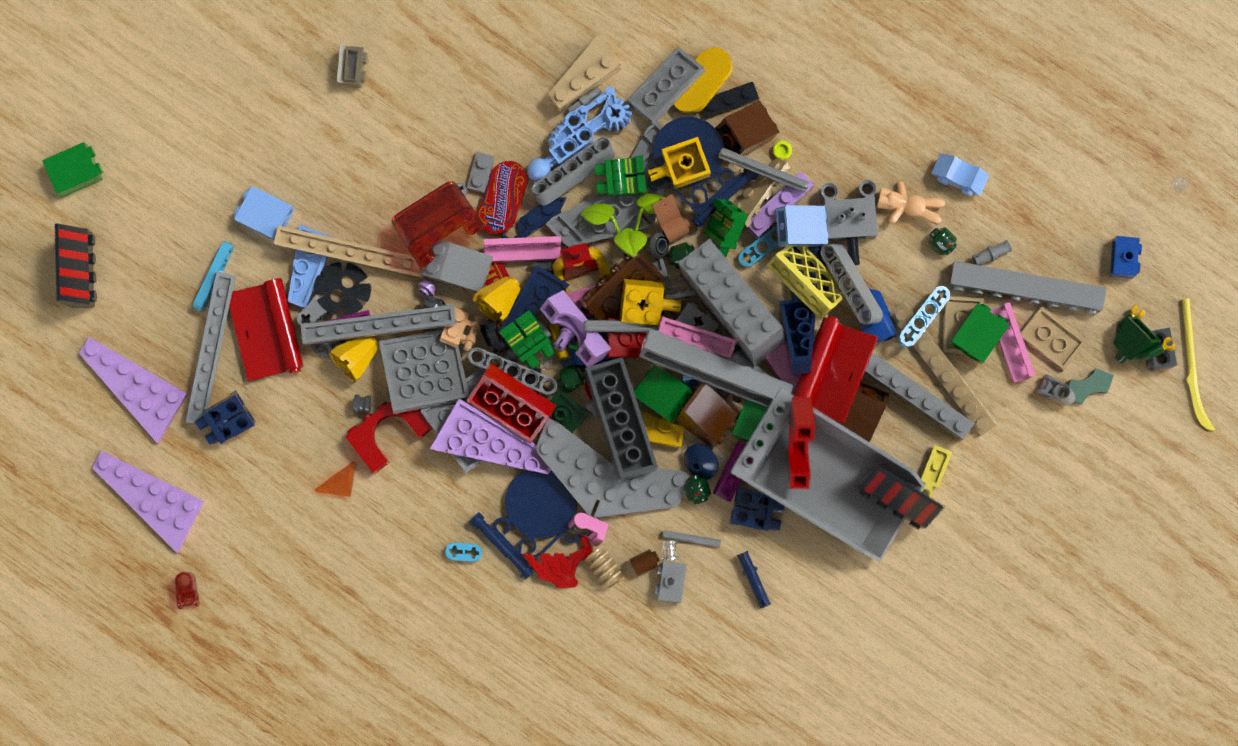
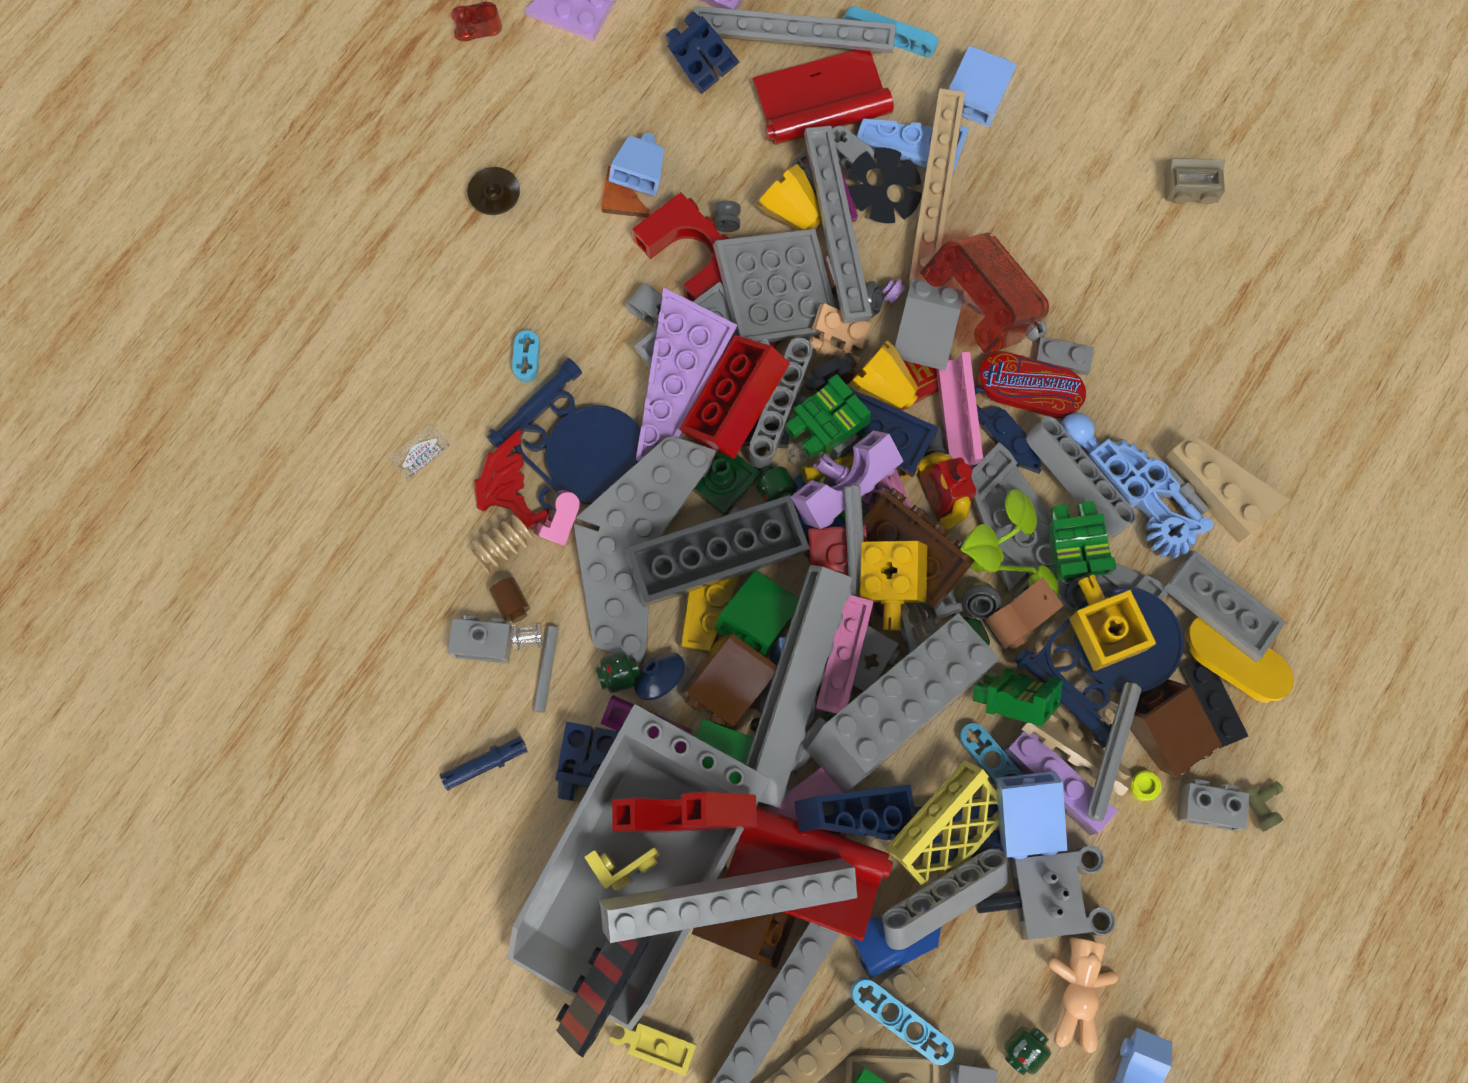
camera: 80 degrees right, 10 degrees down
(318, 466) = (638, 164): none -> light blue torso
(323, 572) = (489, 182): none -> dark brown dish
(429, 463) = (645, 304): none -> light grey piece
(533, 628) = (418, 452): none -> clear tile
(792, 80) = (1258, 798): none -> olive piece
(798, 109) = (1213, 806): none -> light grey brick
(836, 485) = (604, 867): none -> light yellow bracket
(853, 417) = (727, 899): none -> light grey brick

